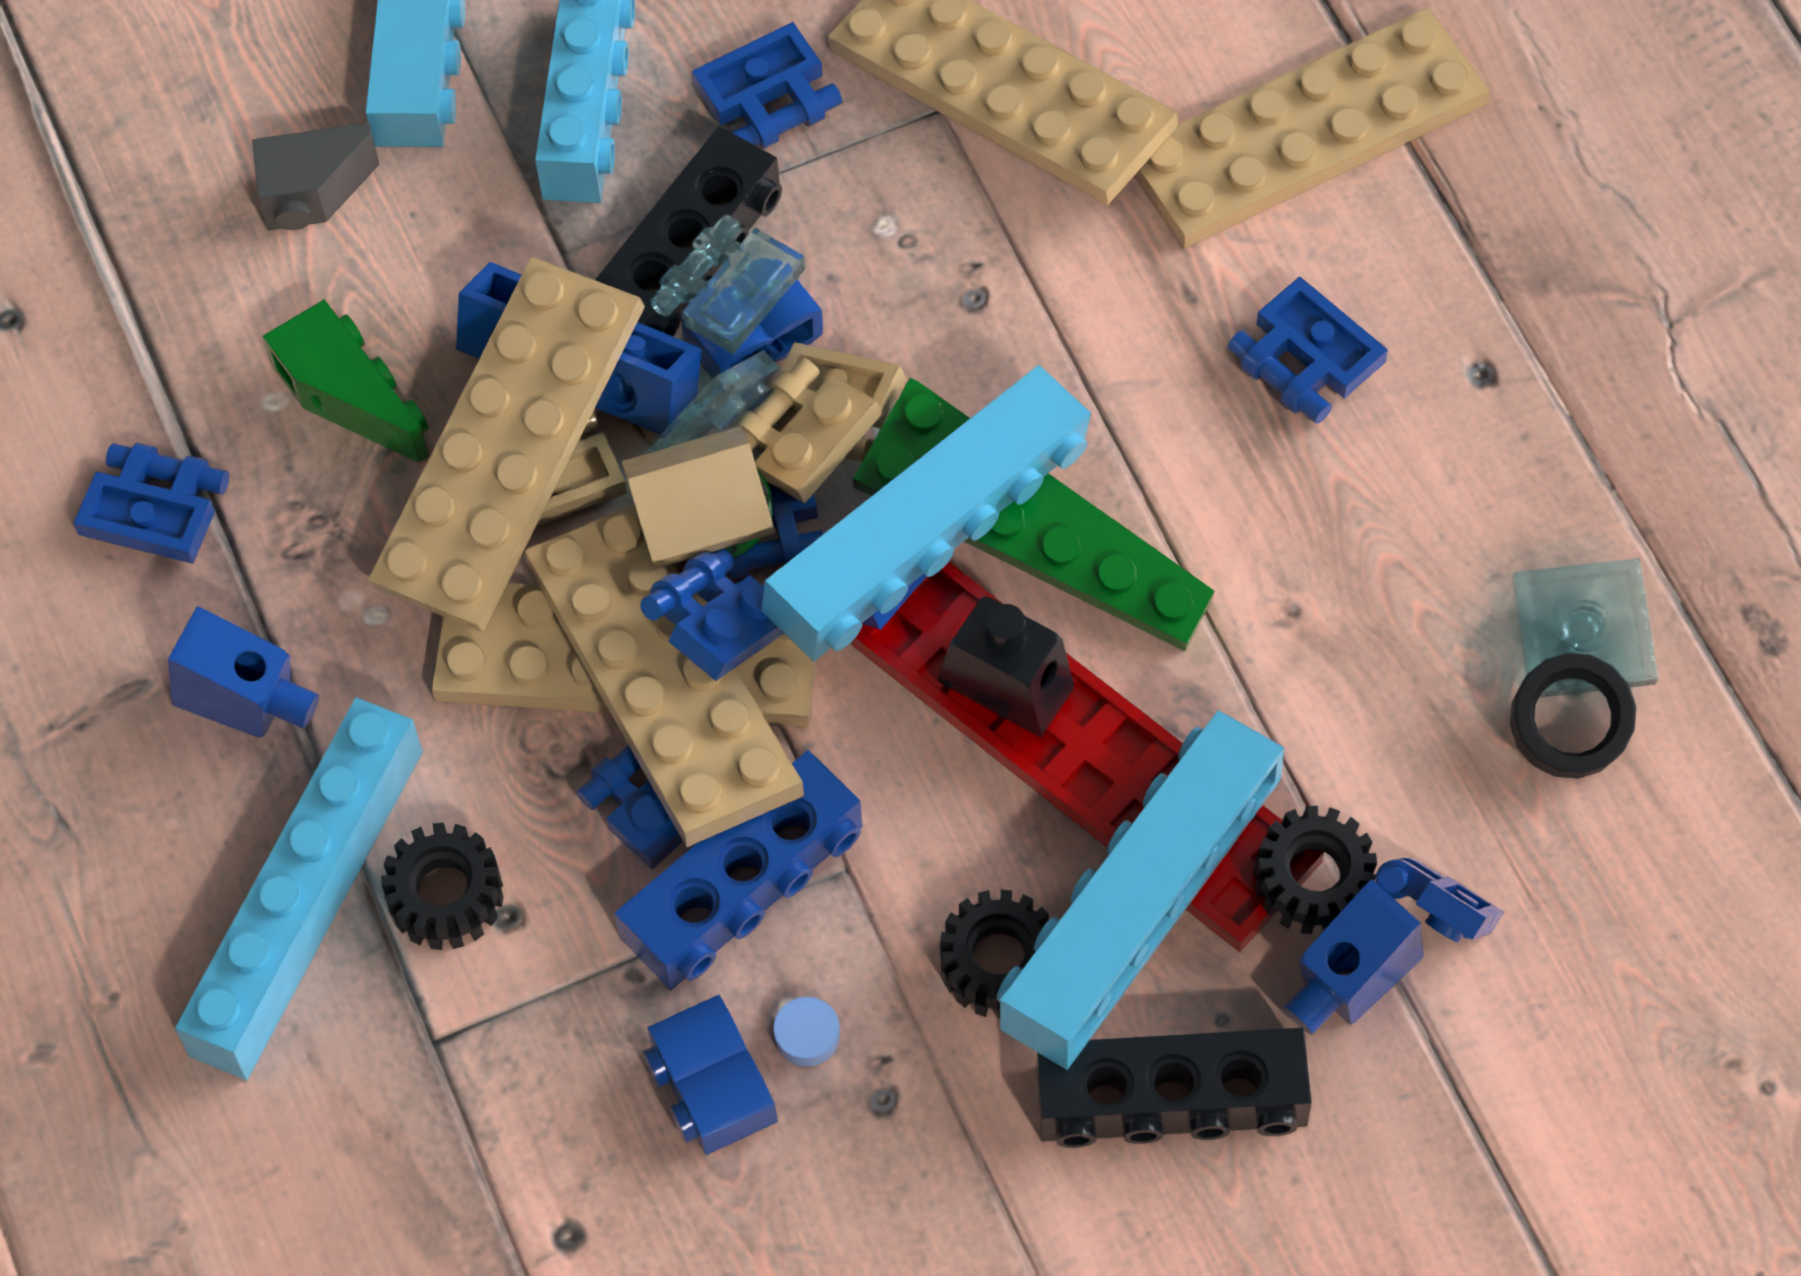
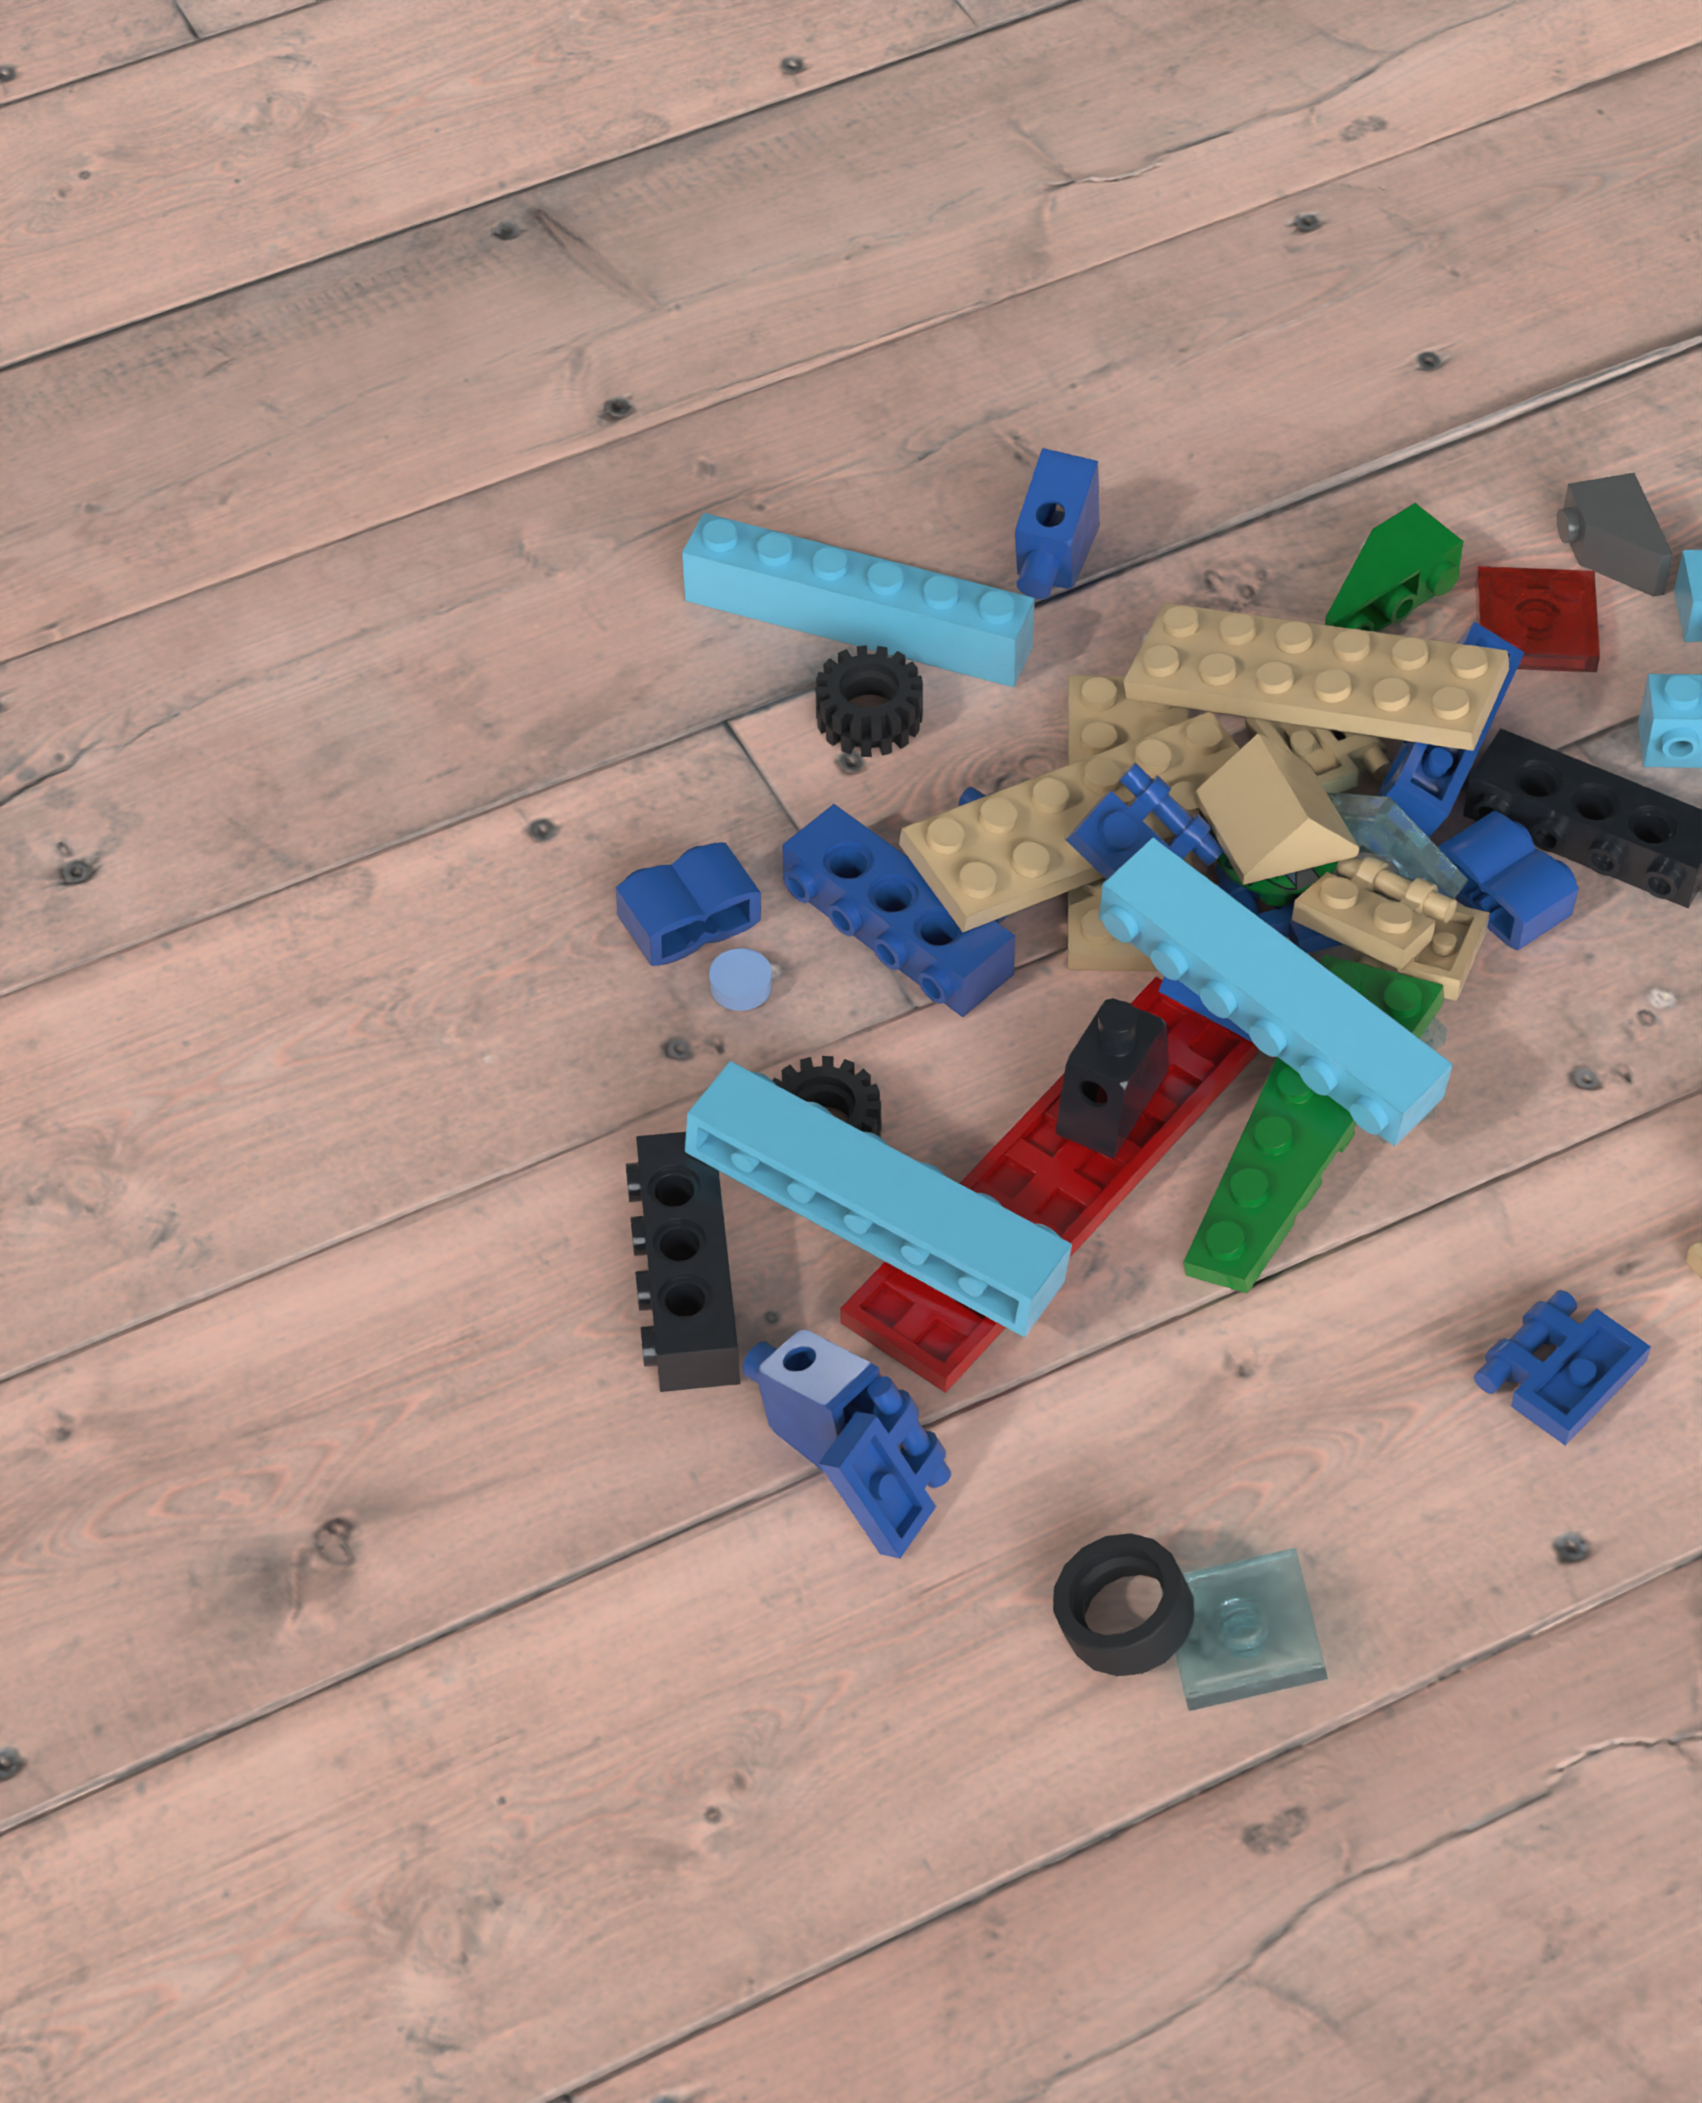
camera: 85 degrees right, 10 degrees down
(149, 516) = (1226, 460): blue plate -> none
(403, 263) = (1542, 614): none -> clear red plate
(739, 293) = (1526, 829): clear light blue plate -> none
(1316, 833) = (922, 1321): black tyre -> none

